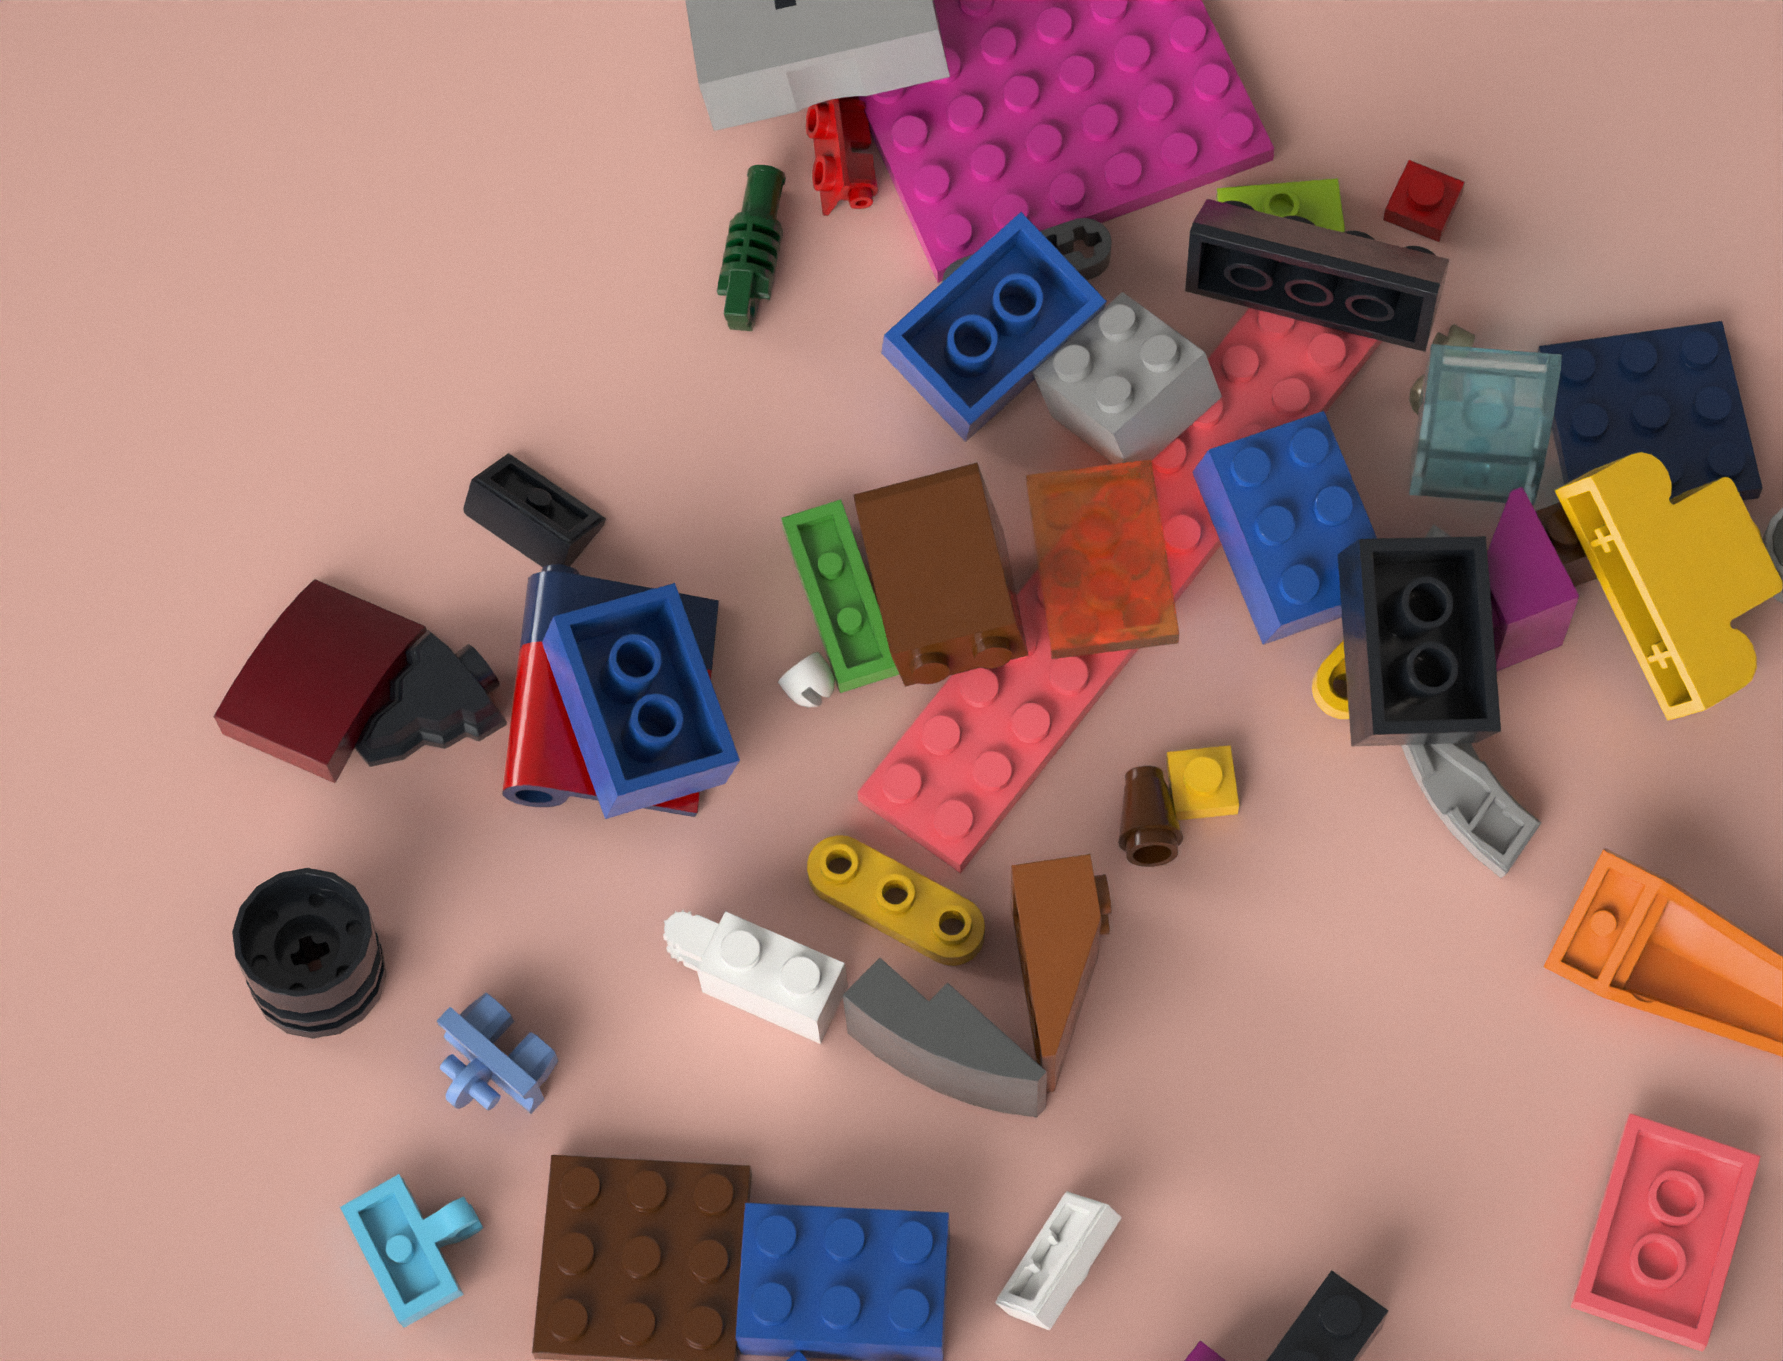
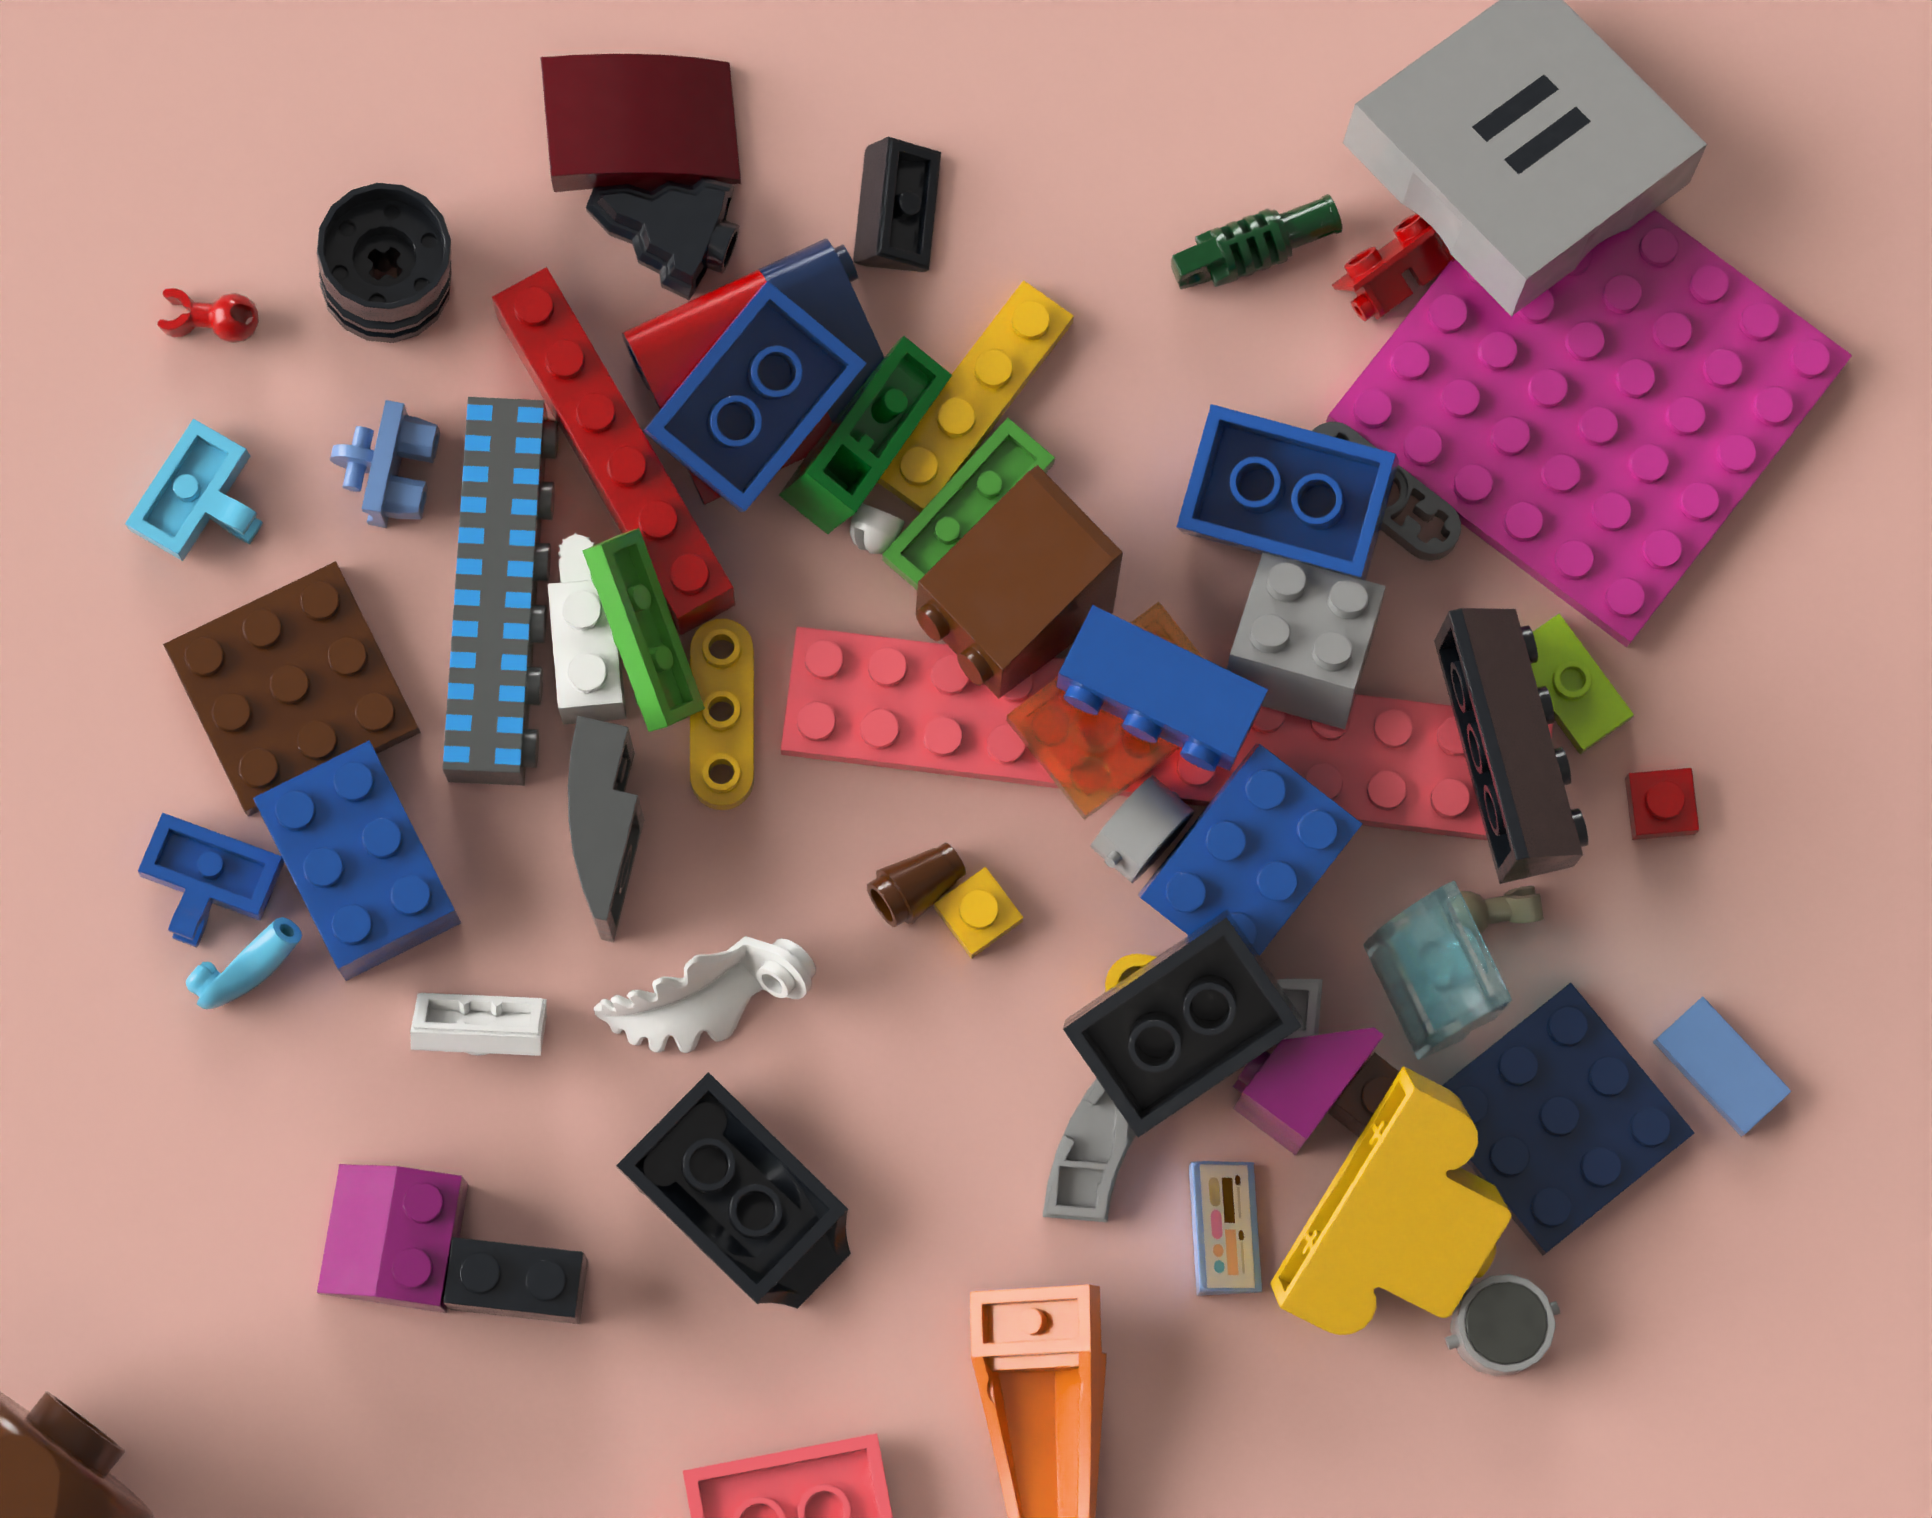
camera: 50 degrees right, 10 degrees up
(259, 1132) = (224, 316): none -> red arm
(603, 856) = (612, 447): none -> red brick
(669, 1026) = (497, 591): none -> dark grey brick
(738, 649) = (865, 437): none -> green slope
(743, 543) = (977, 395): none -> yellow plate
(790, 908) = (643, 630): none -> bright green plate
(1057, 927) = (734, 875): dark orange slope -> none
(1110, 506) = (1160, 690): none -> blue brick
(1151, 1041) = (709, 994): none -> white plant
(1213, 602) = (1142, 829): none -> light grey piece
(1343, 1115) = (740, 1196): none -> black slope
(1597, 733) = (1225, 1227): none -> slope
(1674, 273) = (1722, 1066): none -> medium blue tile

